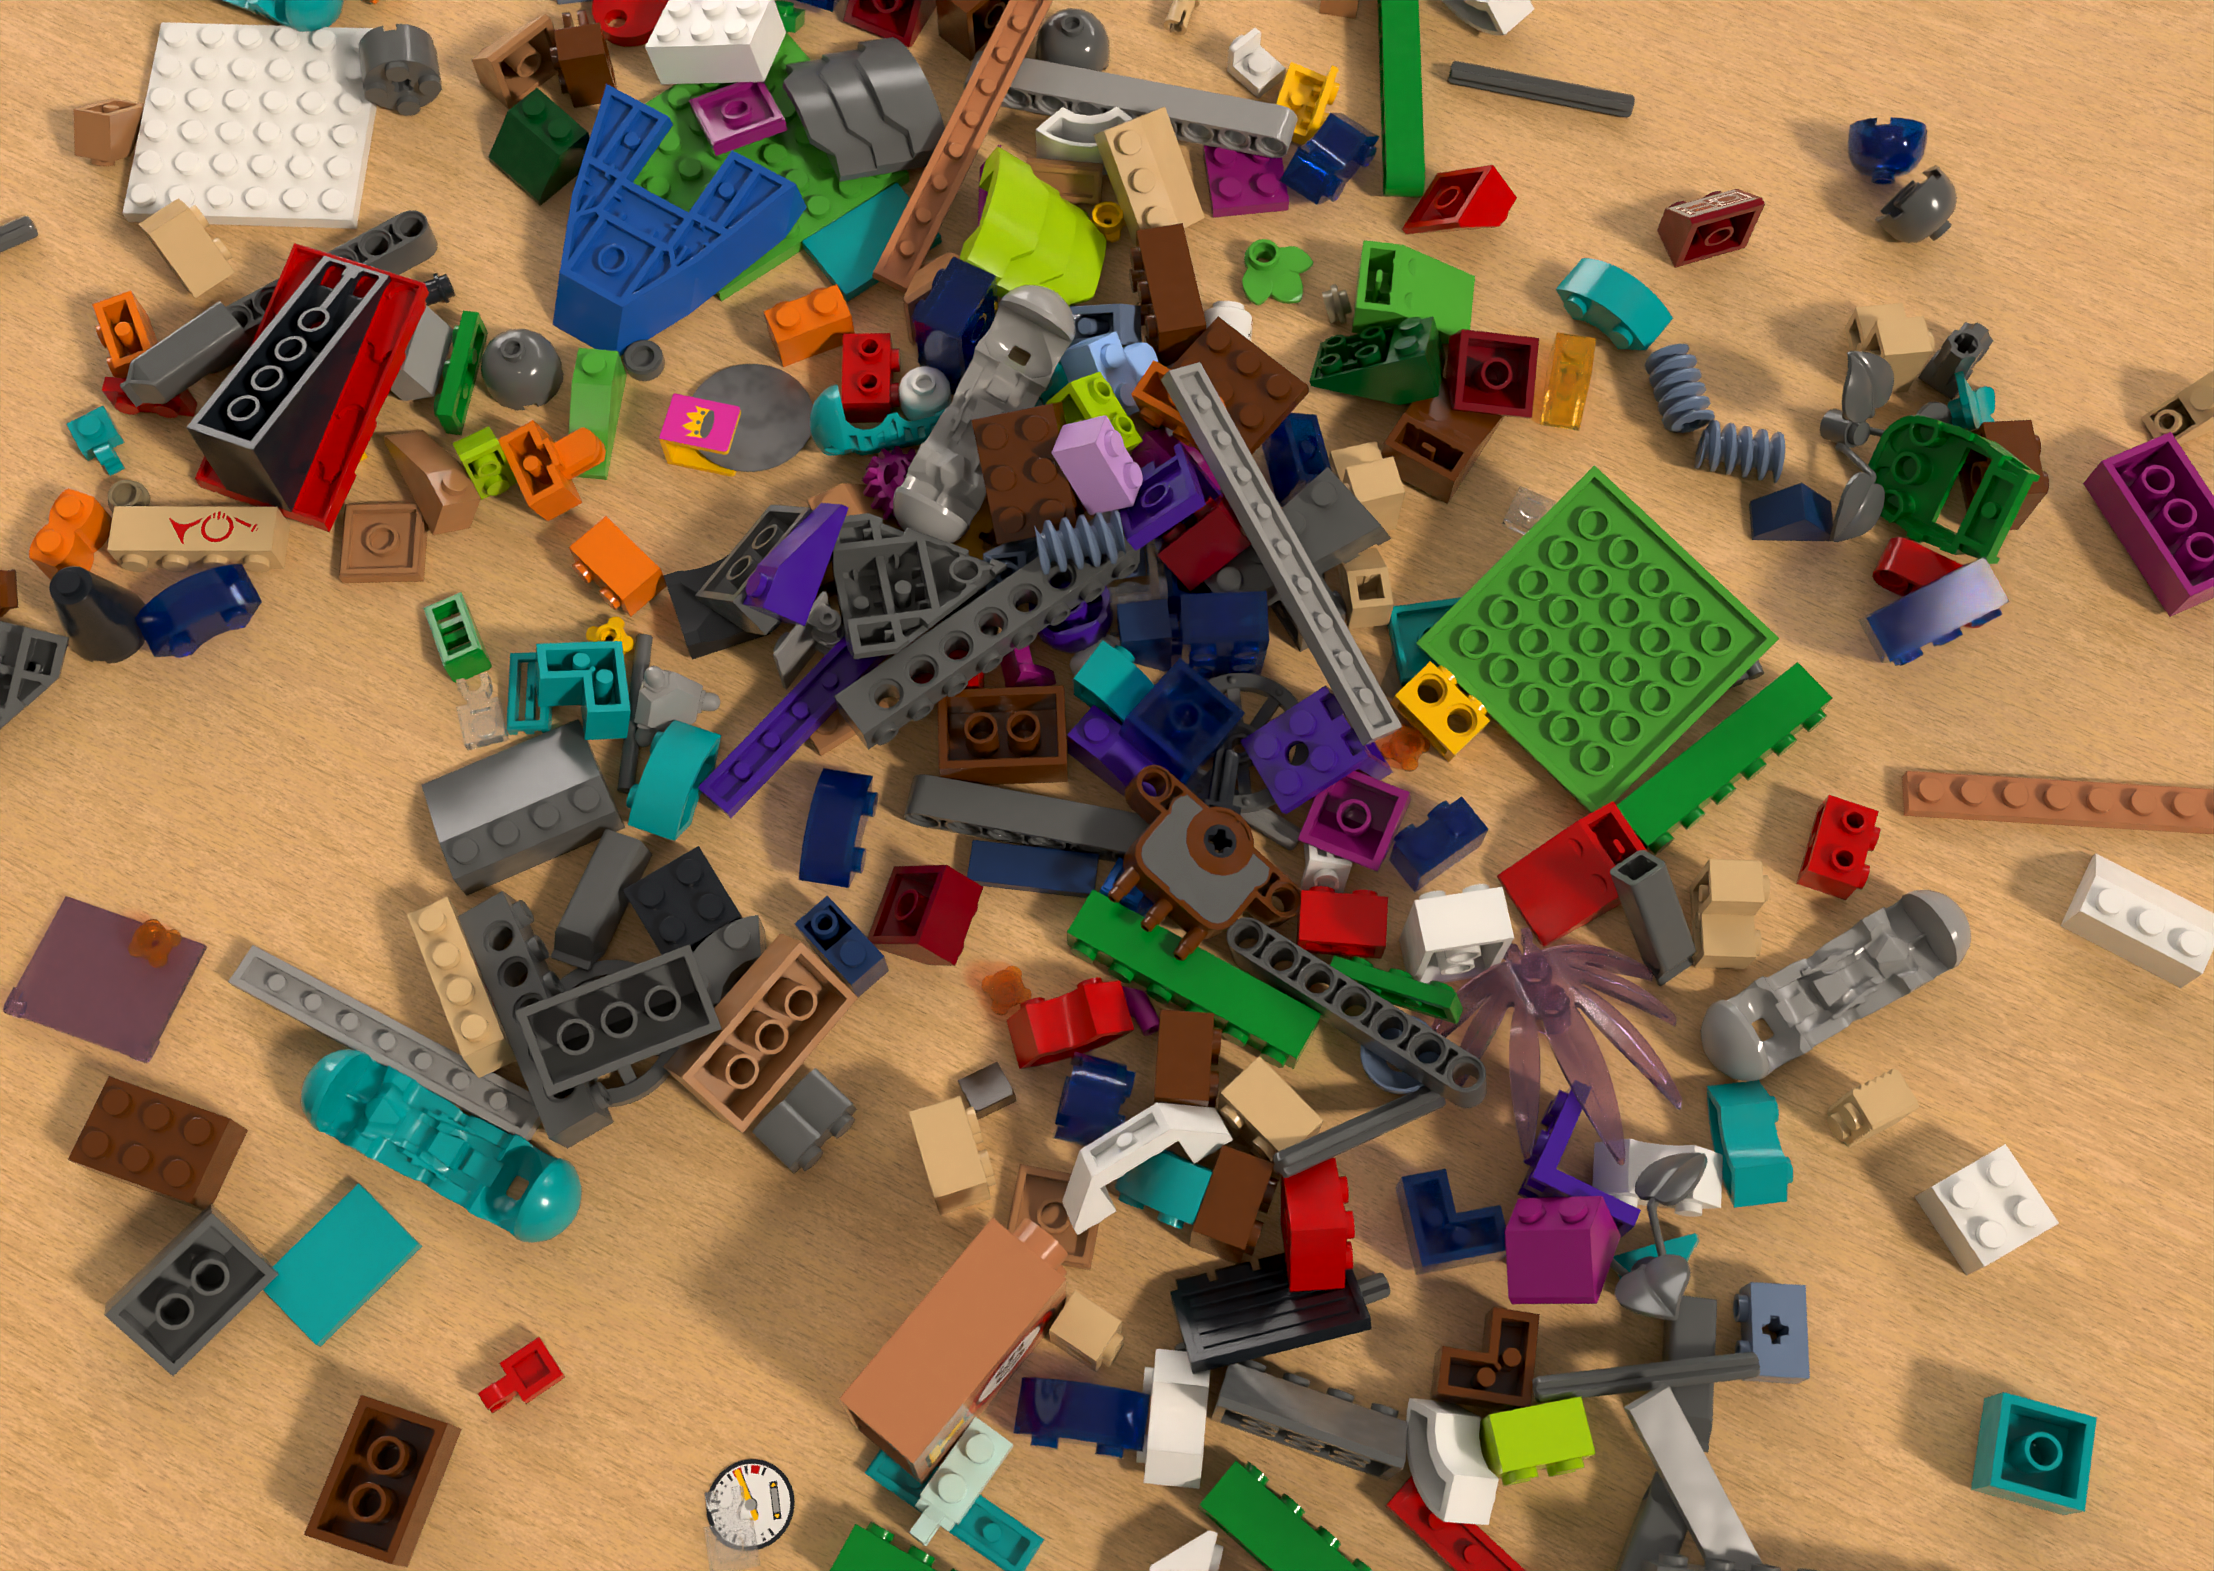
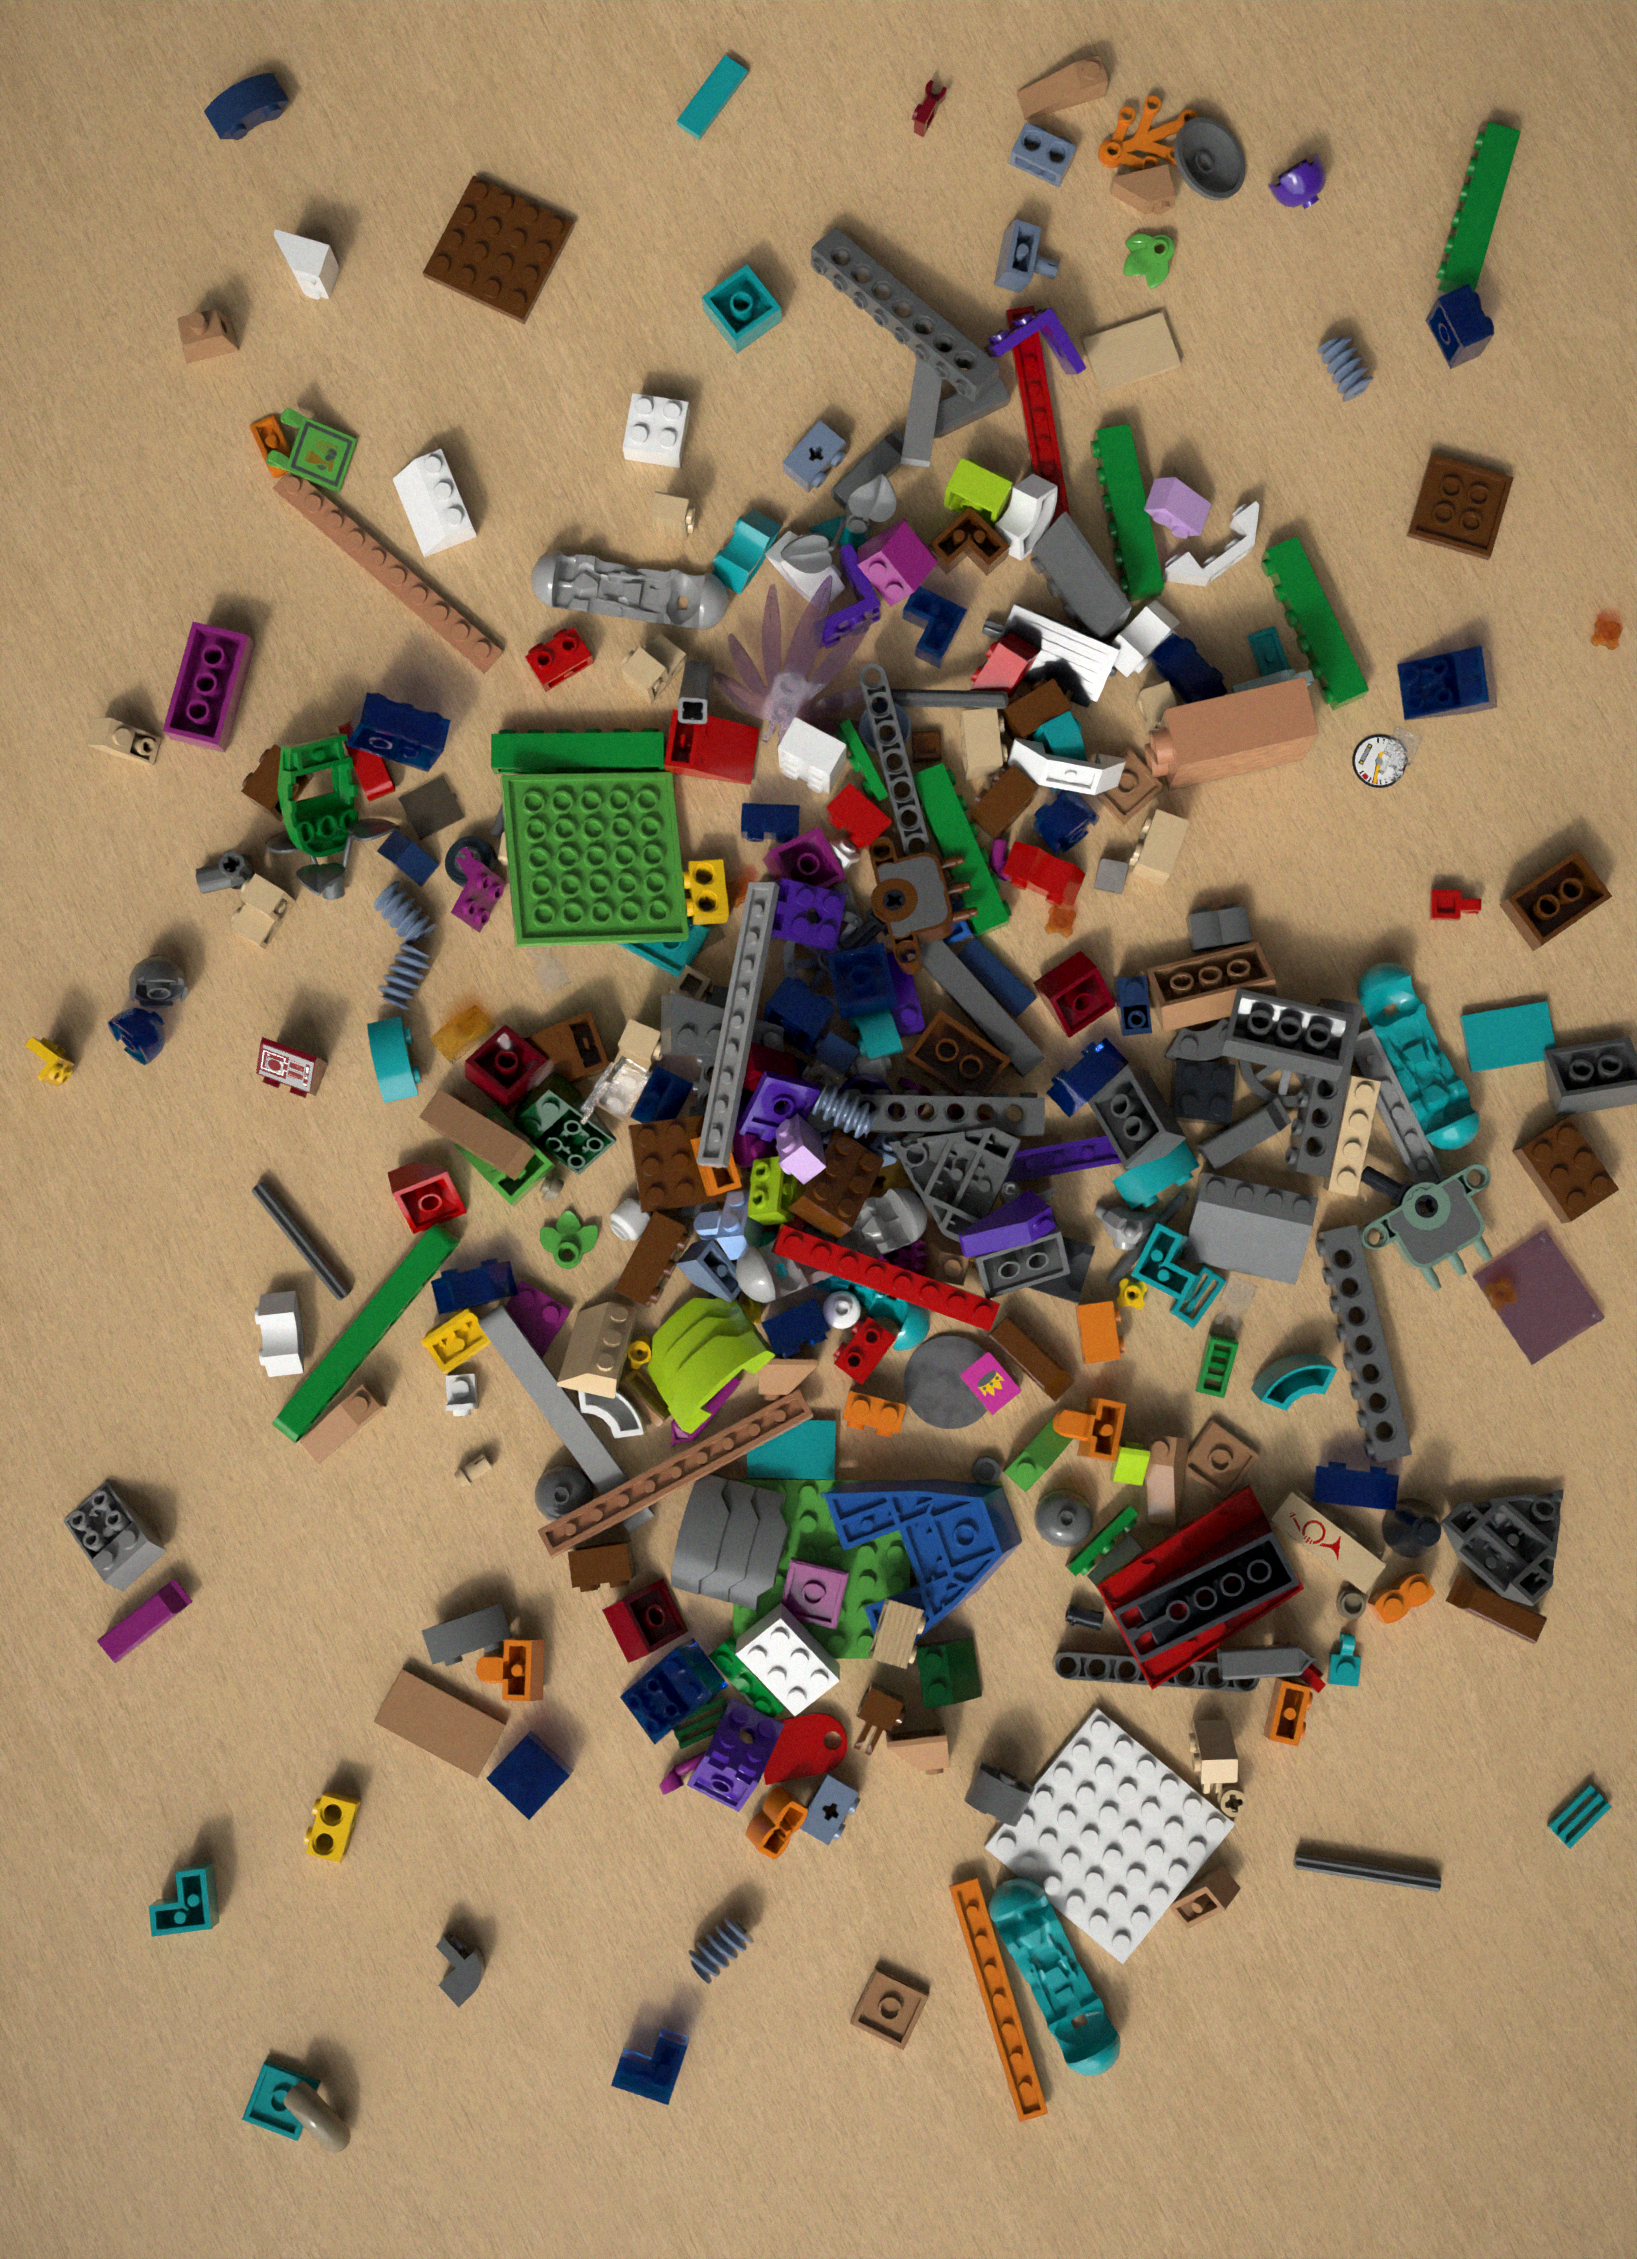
camera: 140 degrees left, 15 degrees up
(137, 237) = (1239, 1806): none -> tan bush
(192, 677) = (1396, 1442): none -> dark grey brick
(281, 938) = (1432, 1235): none -> piece
(349, 671) = (1293, 1378): none -> teal brick
(614, 107) = (896, 1634): none -> tan brick
(678, 494) = (1031, 1358): none -> reddish brown piece
(739, 814) = (1136, 1118): none -> dark grey slope
(897, 426) = (885, 1277): none -> red plate
(1332, 1079) = (926, 746): none -> reddish brown tile
(1356, 433) = (616, 1089): none -> clear bracket
(1459, 283) = (478, 1134): none -> medium nougat brick
(1645, 1377) = (902, 477): dark grey axle -> none
(1717, 543) = (472, 866): none -> magenta plate
(1817, 590) = (431, 808): none -> clear smoke piece
(1945, 60) = (58, 1066): none -> yellow bracket
(1972, 406) = (247, 838): teal animal -> none

